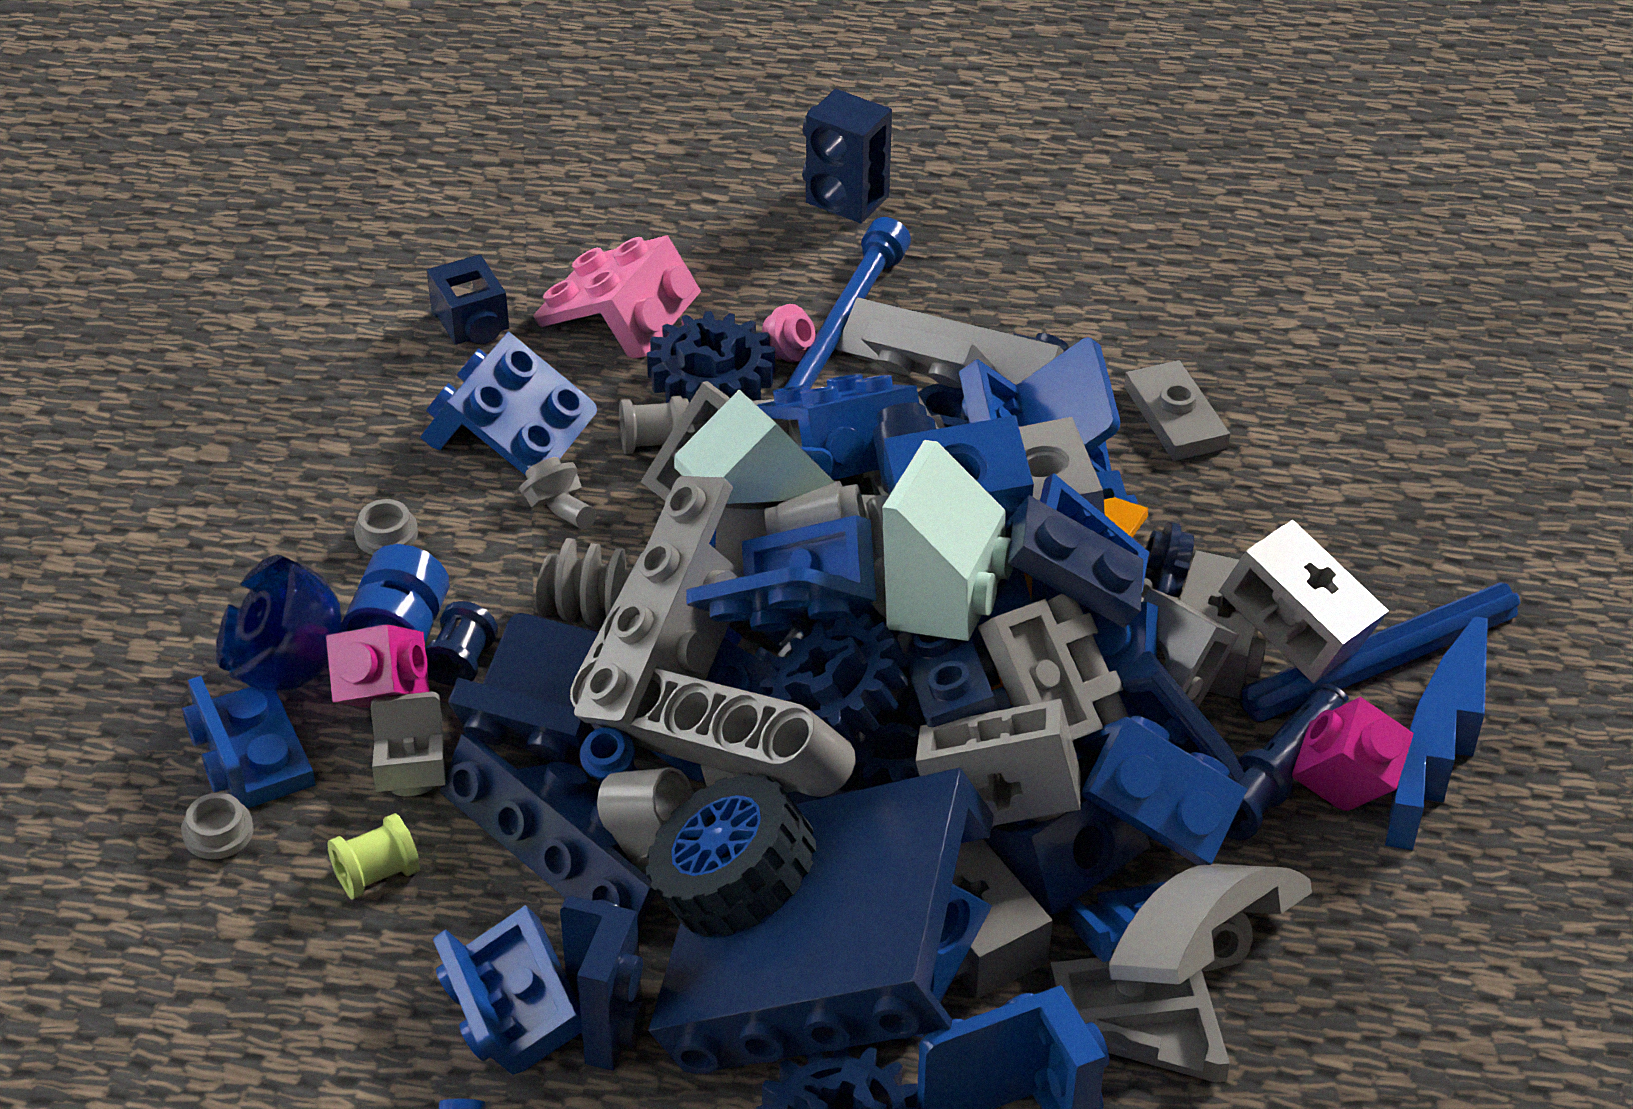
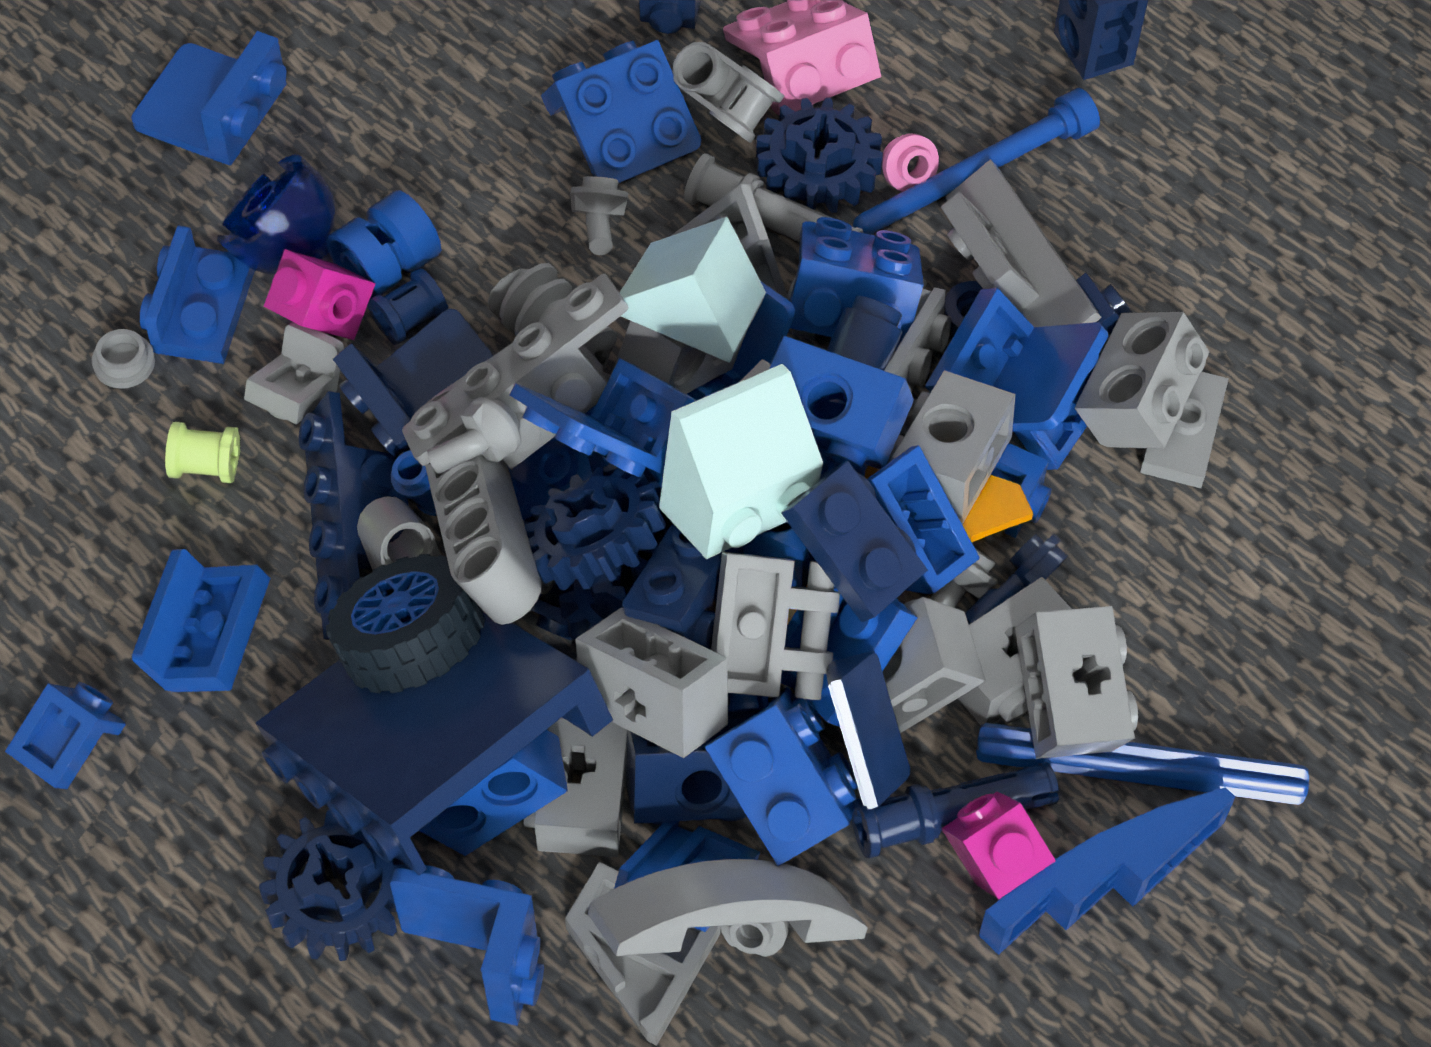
camera: 35 degrees right, 15 degrees up
(113, 581) = (213, 99): none -> blue bracket
(384, 524) = (443, 168): light grey plate -> none
(604, 348) = (726, 89): none -> light grey piece
(604, 975) = (254, 665): dark blue bracket -> none
(684, 650) = (490, 432): none -> light grey plate
(815, 507) = (693, 368): light grey cone -> none
(1141, 382) = (1142, 380): none -> light grey brick

